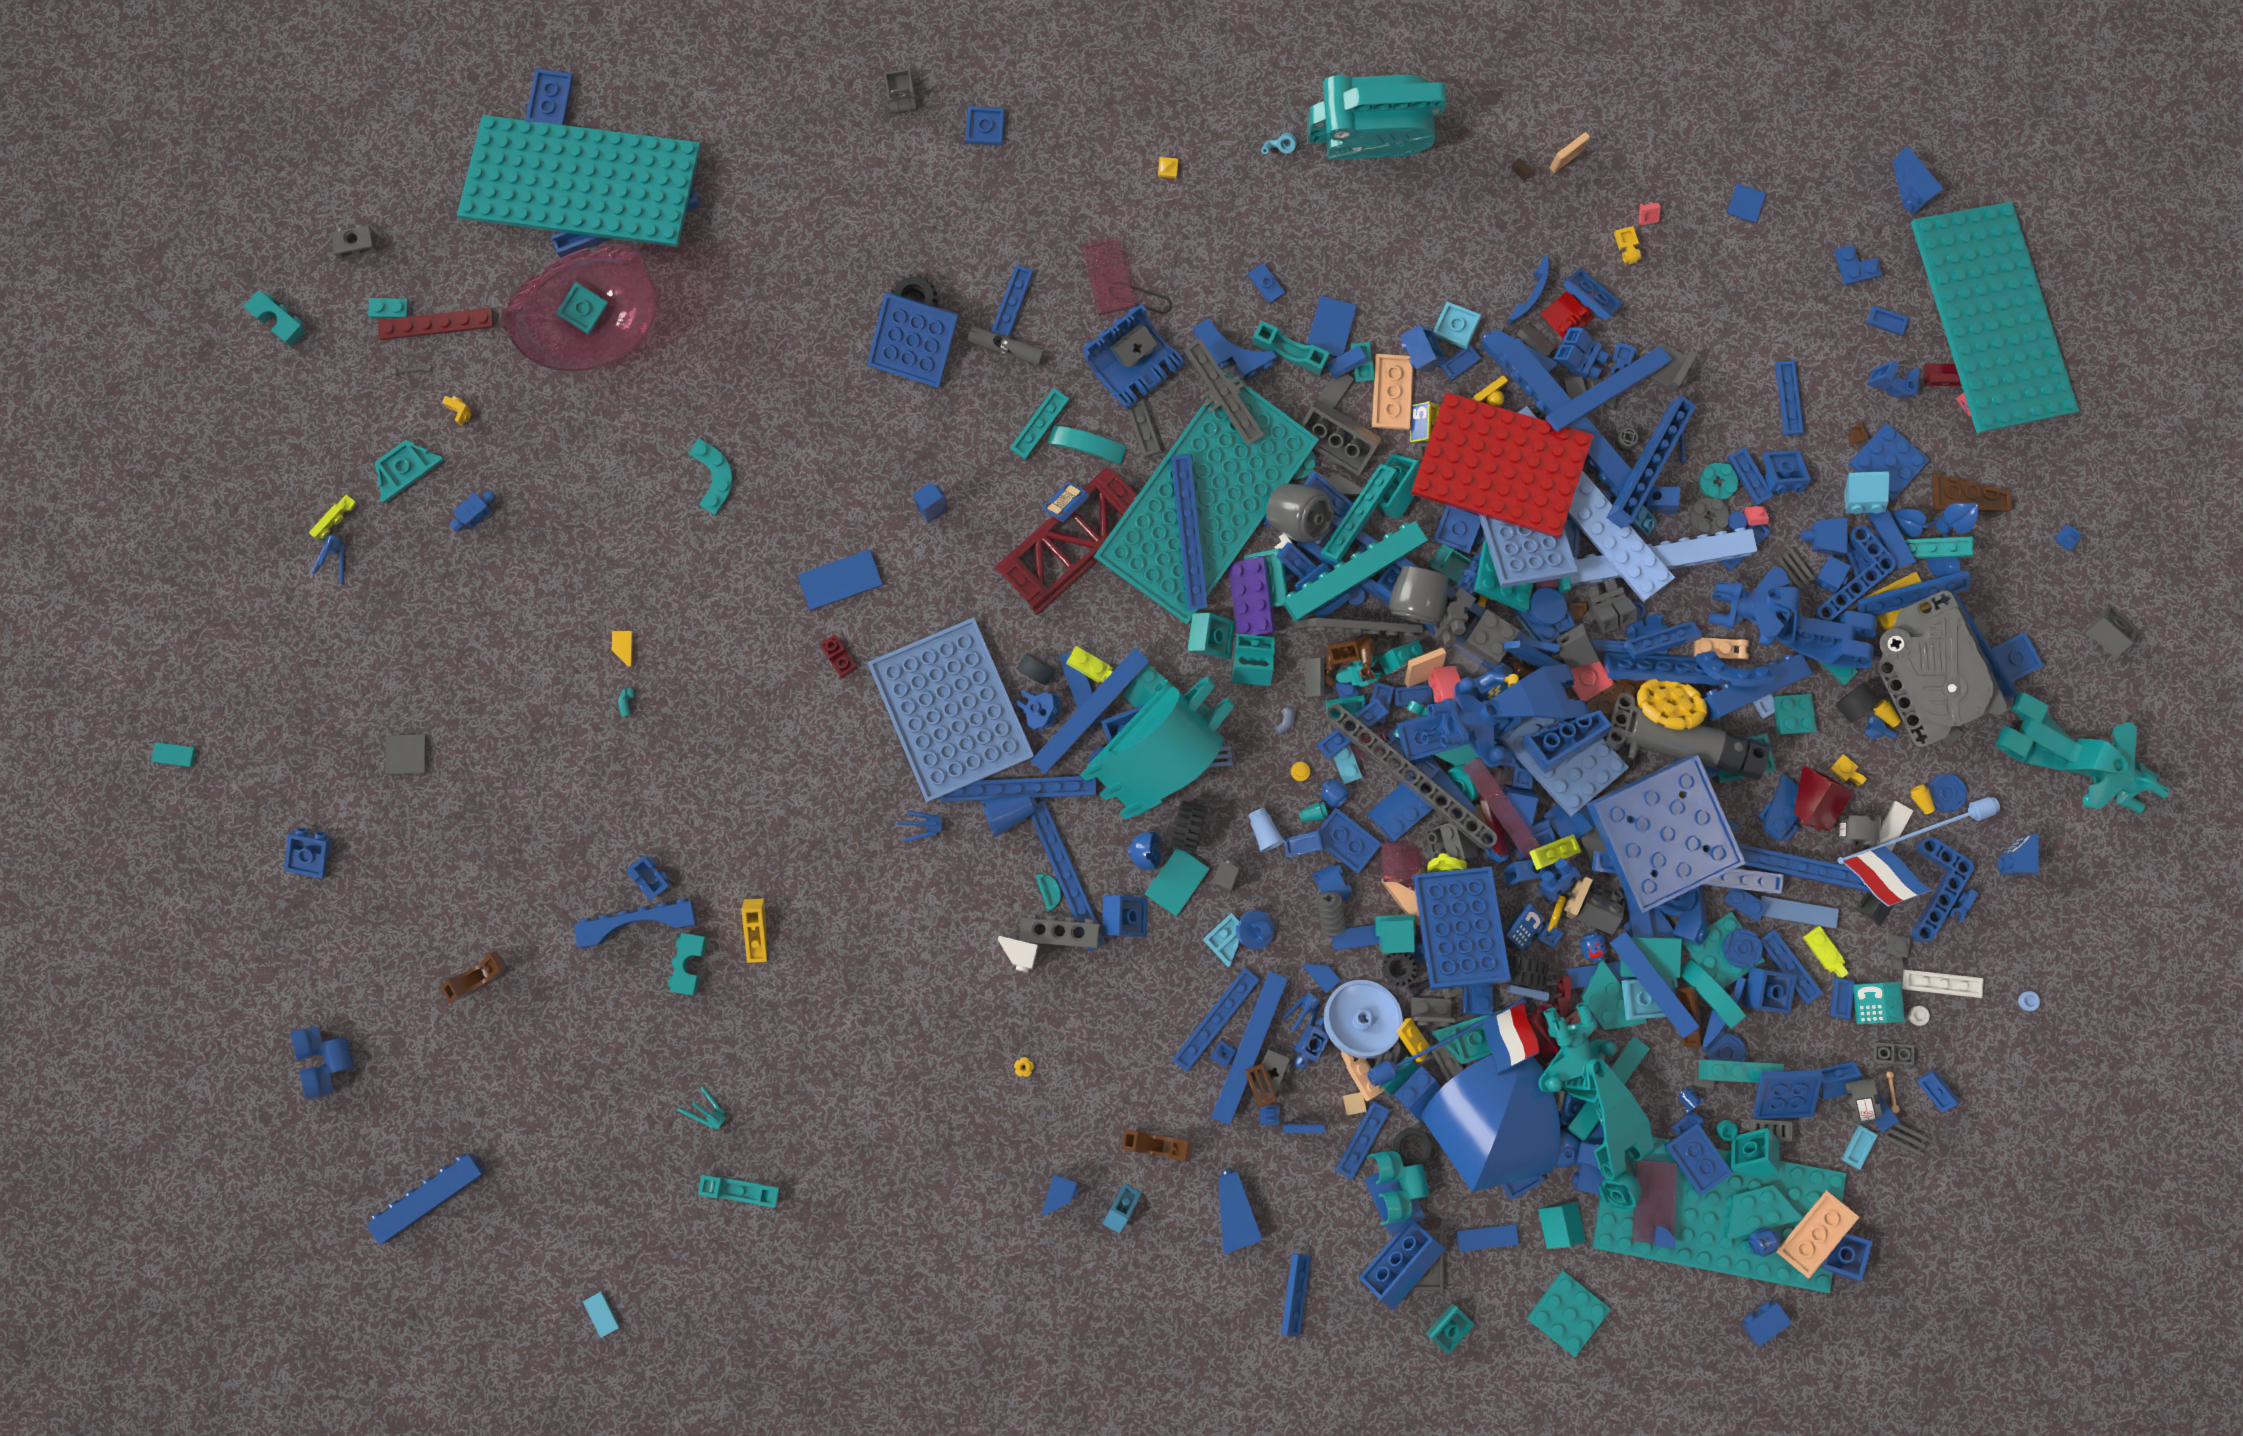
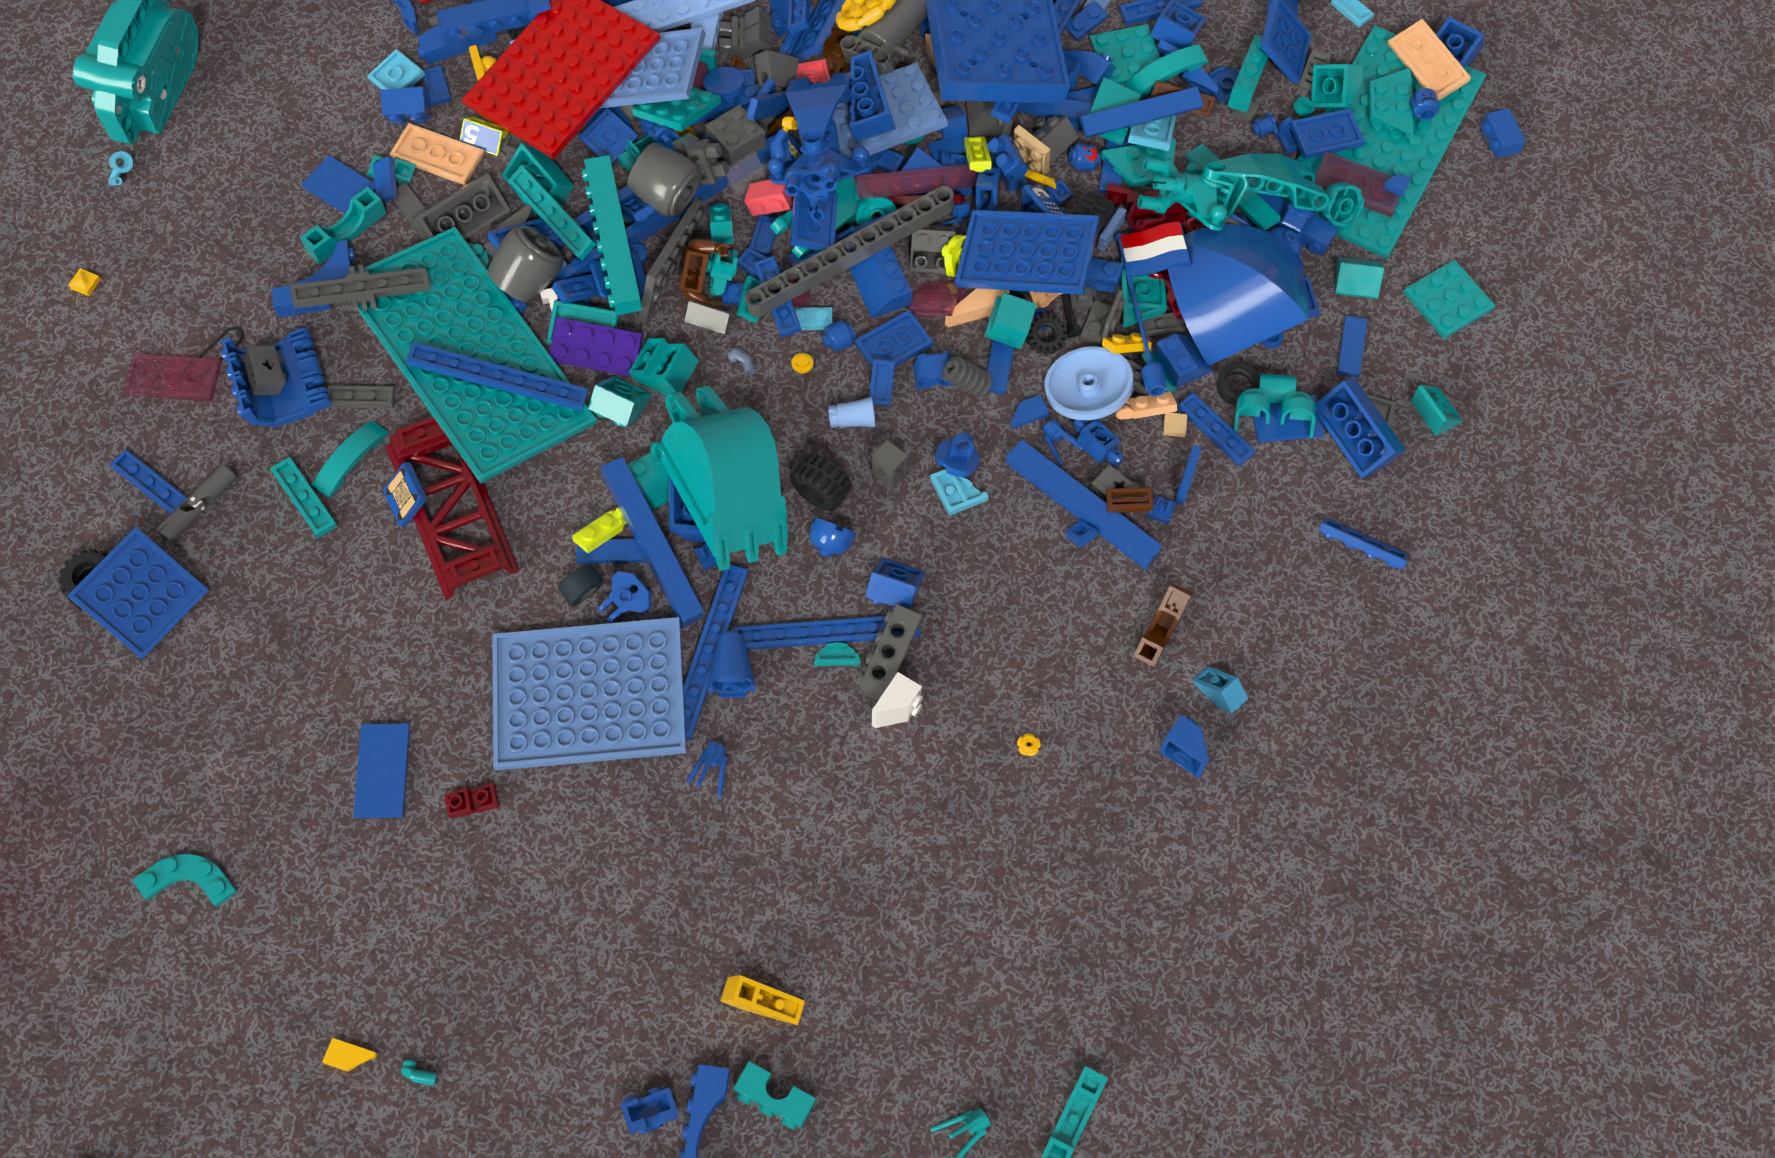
camera: 70 degrees left, 15 degrees down
(930, 501) = (337, 630): blue brick -> none
(1176, 881) = (875, 521): teal tile -> none
(1215, 1019) = (1041, 530): blue tile -> none
(1236, 1216) = (1259, 573): blue slope -> none
(1266, 283) = (262, 230): blue plate -> none
(1314, 812) = (851, 363): teal cone -> none
(1421, 667) = (738, 209): light nougat tile -> none
(1742, 948) = (1129, 35): blue tile -> none

